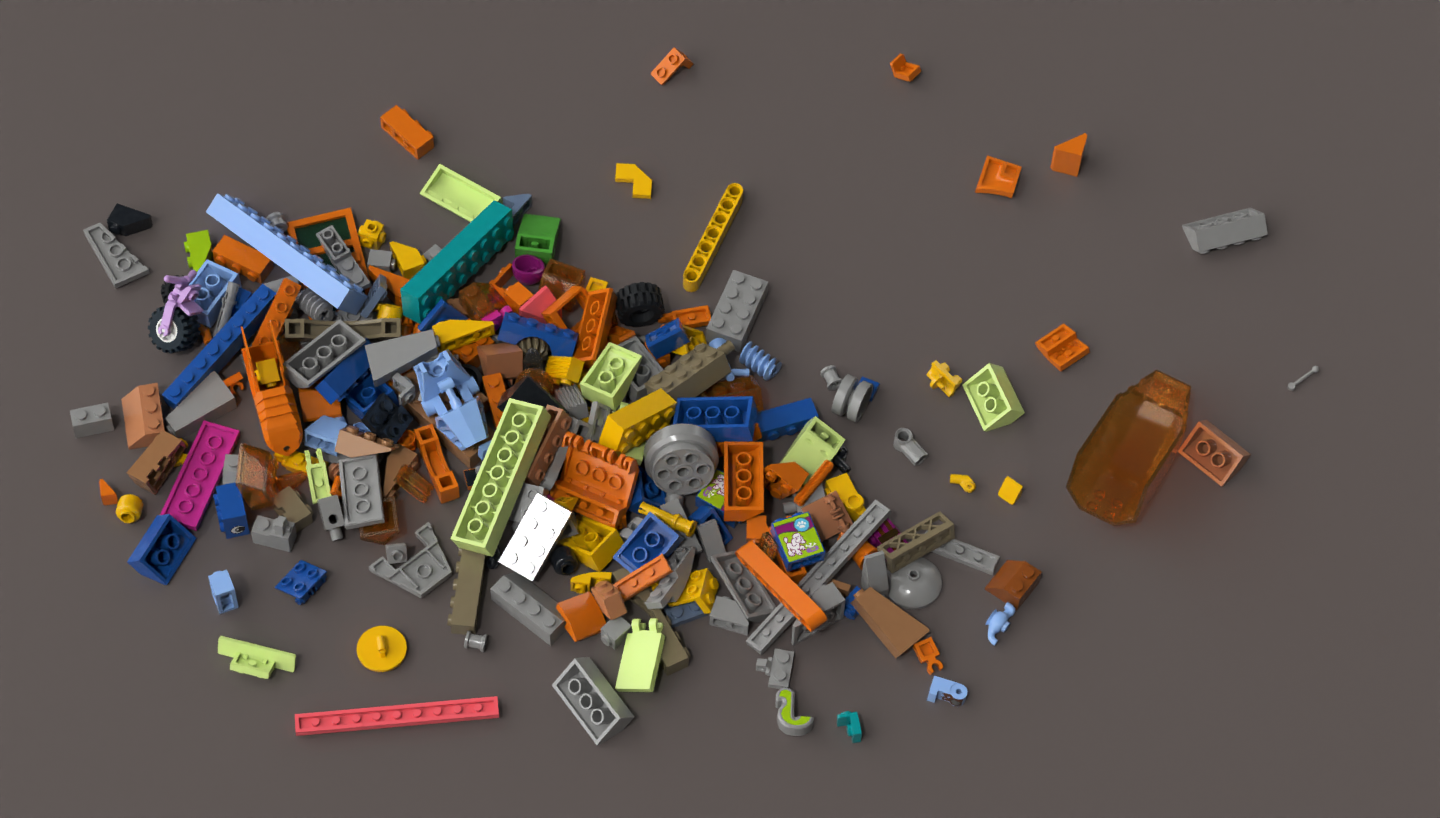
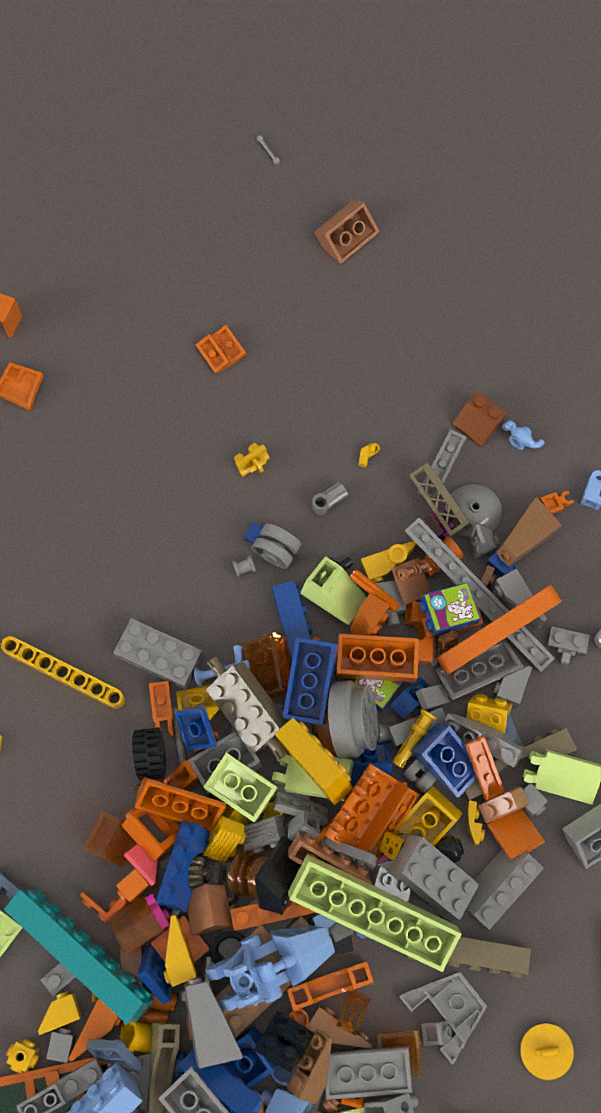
camera: 85 degrees left, 15 degrees up
(405, 387) = (241, 1020): light grey bracket -> none
(475, 641) = (540, 947): light grey bush -> none
(528, 269) = (88, 874): magenta hat -> none
(537, 237) = (45, 862): bright green slope -> none
(596, 284) = (116, 800): yellow plate -> none
(758, 362) = (222, 635): light blue piece -> none
(993, 397) = (277, 416): yellowish green slope -> none
(1010, 490) = (380, 412): yellow slope -> none
(1130, 449) = (360, 288): clear orange windscreen -> none
(1226, 230) = (102, 190): light grey slope -> none

